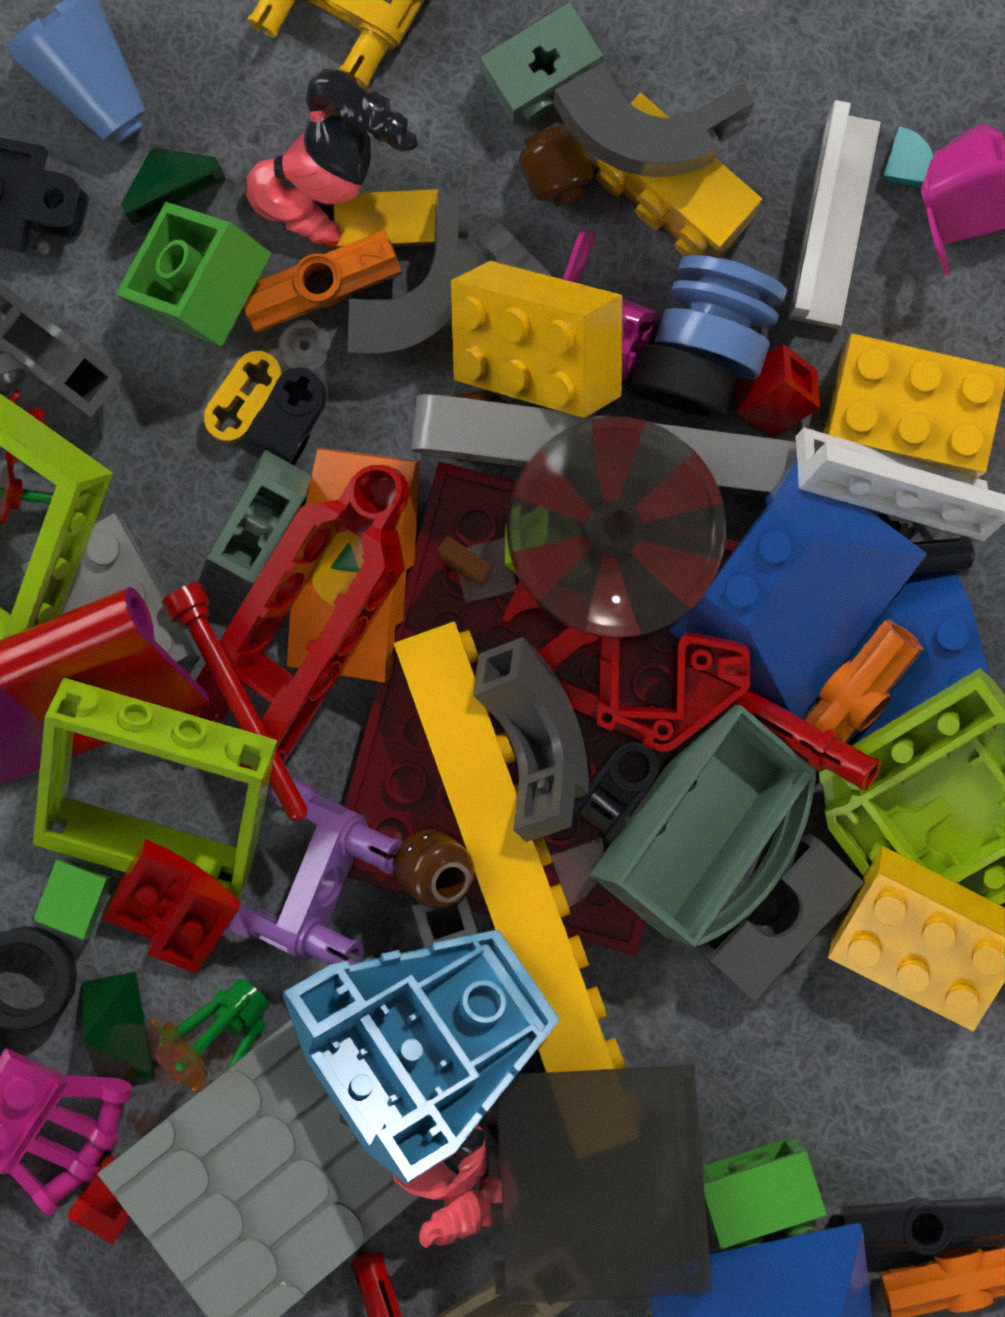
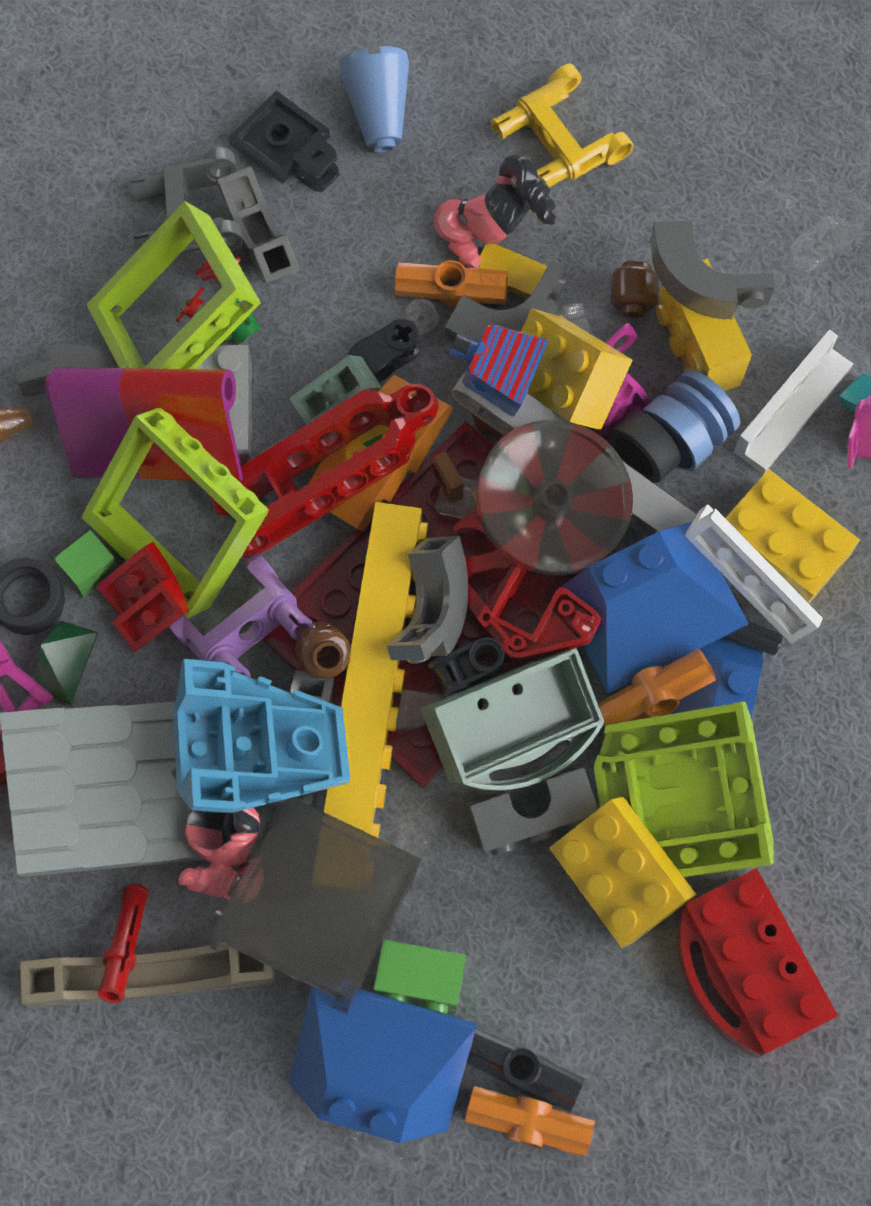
camera: 30 degrees right, 15 degrees down
(169, 178) = (391, 186): dark green slope -> none
(190, 610) = (260, 419): red piece -> none
(194, 273) = (377, 236): bright green brick -> none
(232, 390) = (363, 324): yellow beam -> none
(233, 1011) = (144, 685): green plant -> none
(461, 393) = (500, 365): none -> blue torso
(554, 39) = (637, 220): sand green brick -> none
(781, 394) = (705, 485): red panel -> none
(821, 747) = (629, 723): red pin -> none

